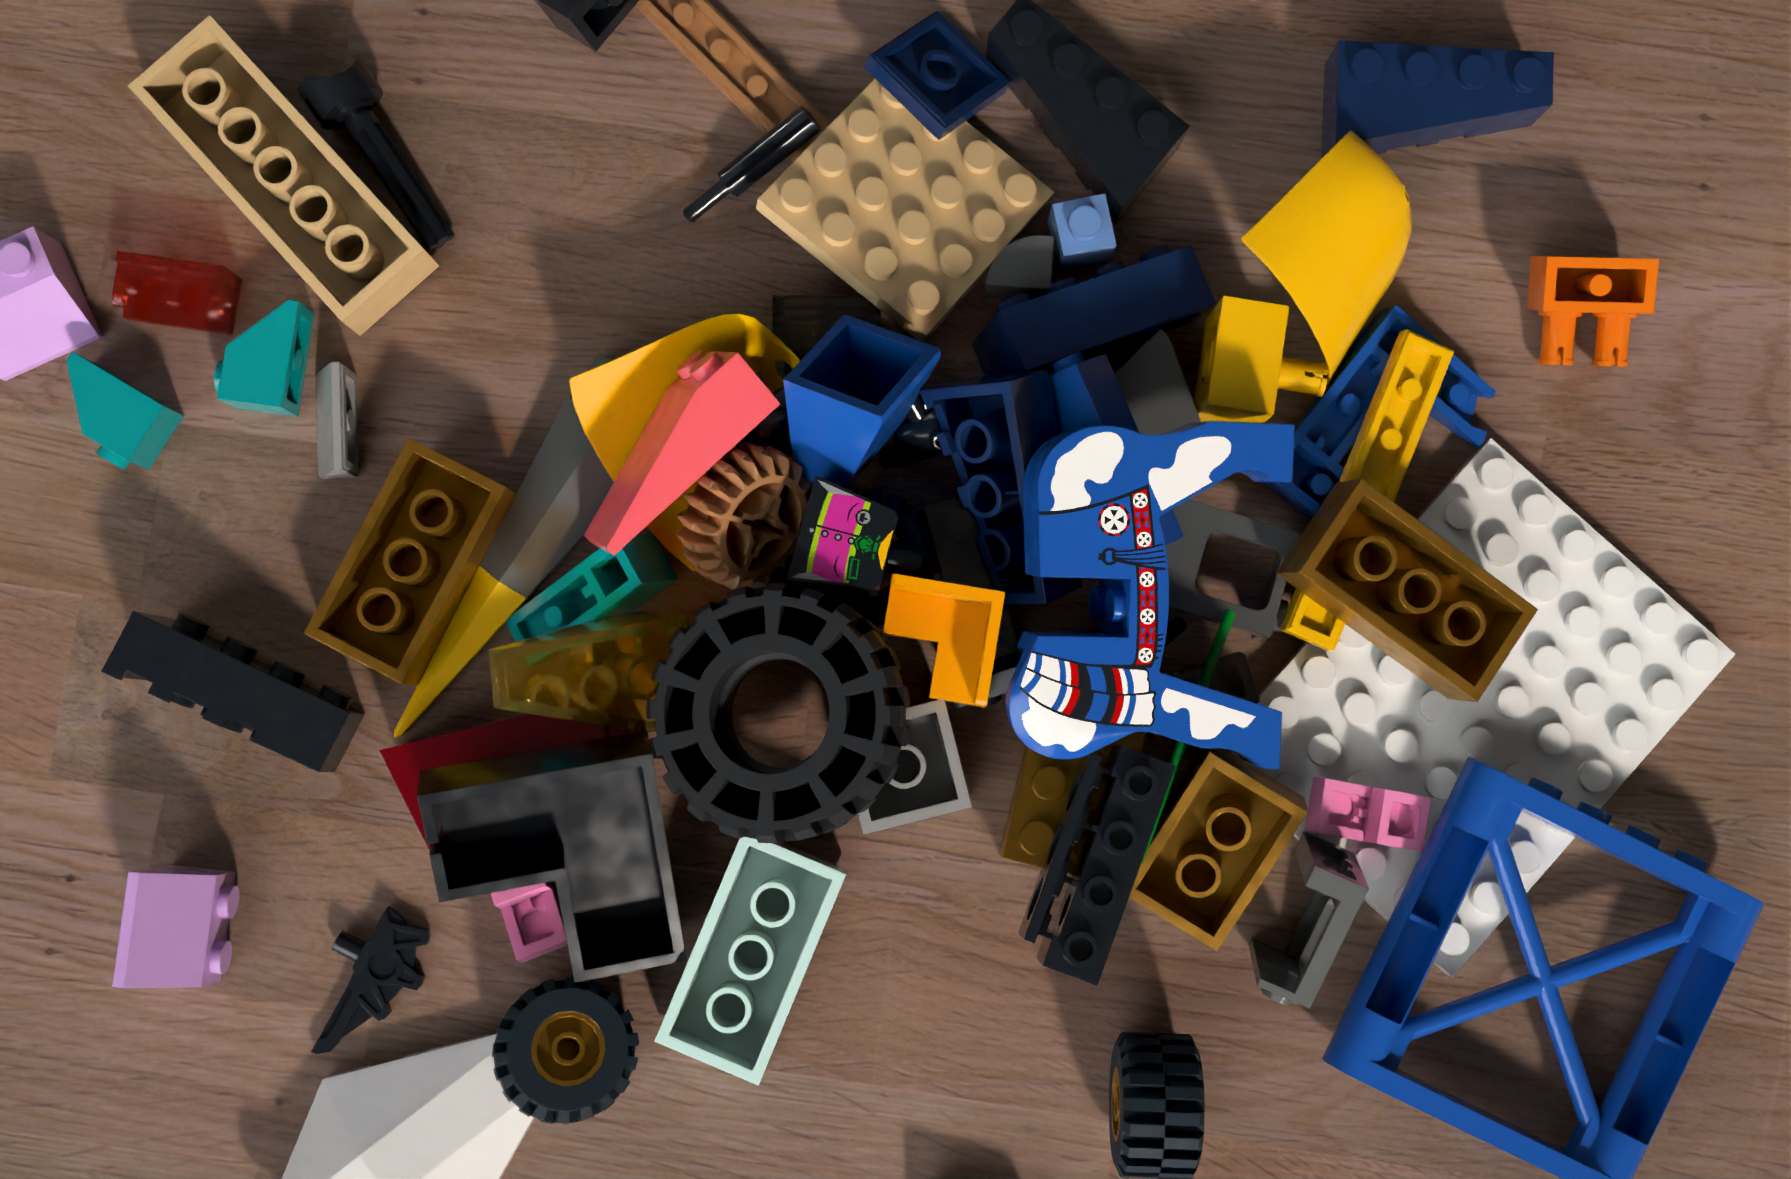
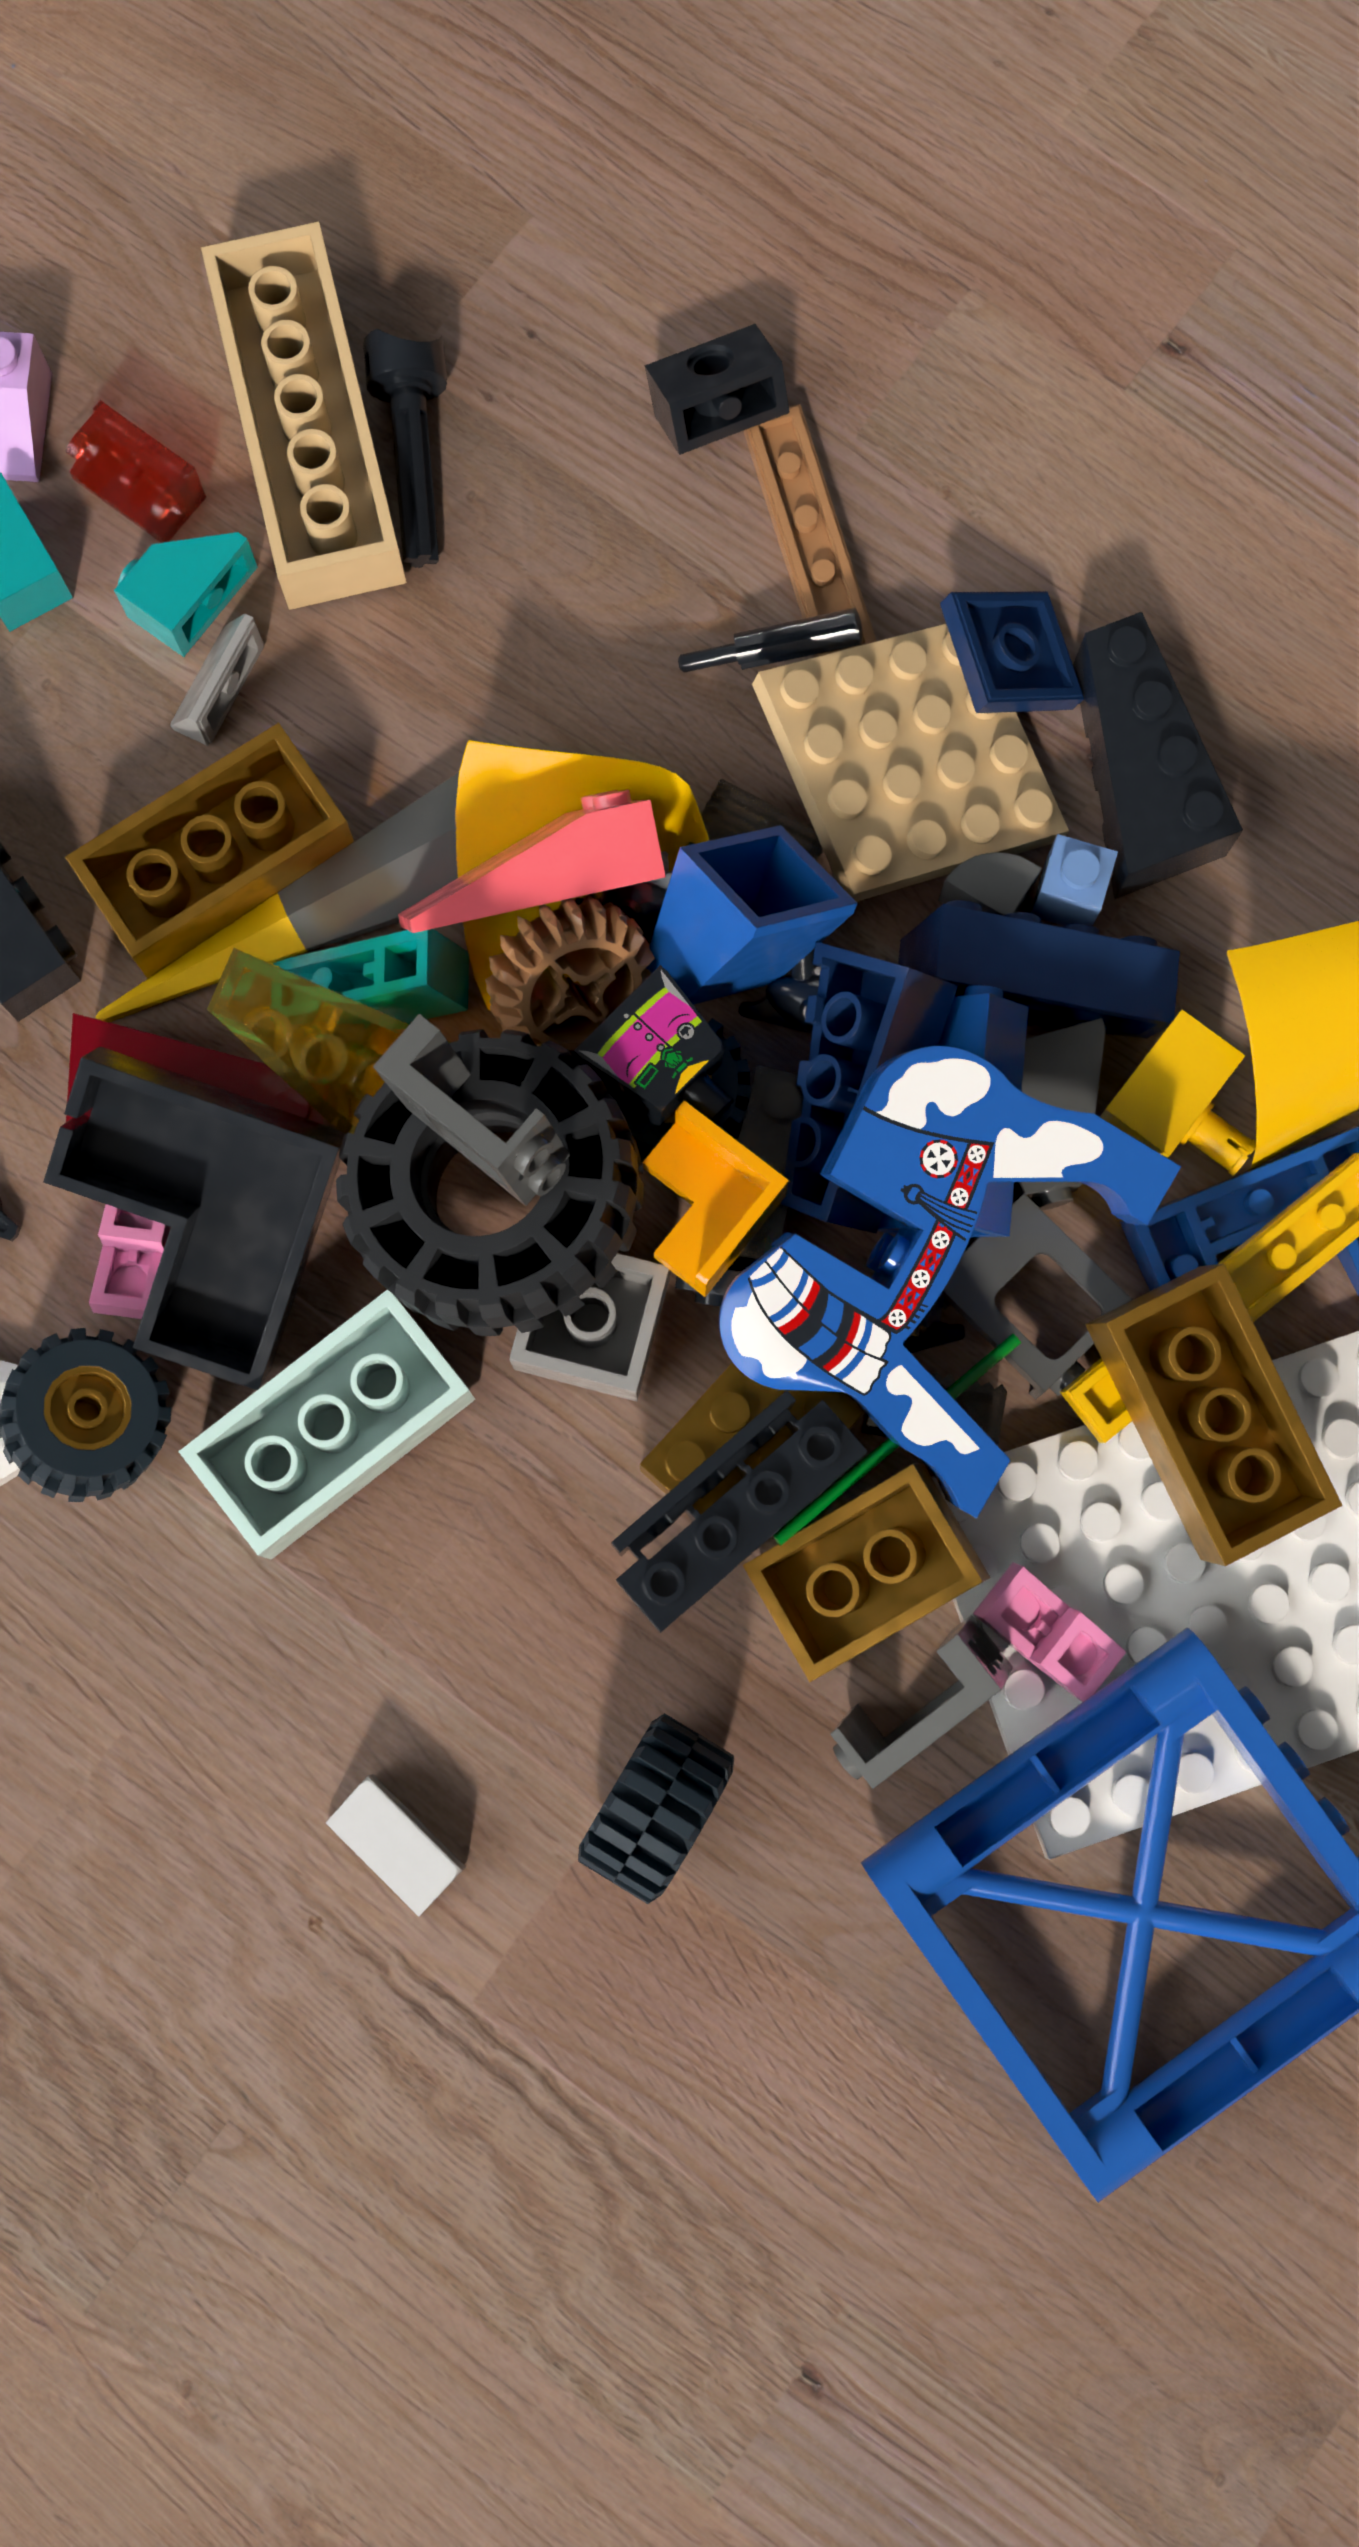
camera: 30 degrees right, 5 degrees down
(691, 671) = (428, 1073): none -> dark grey window

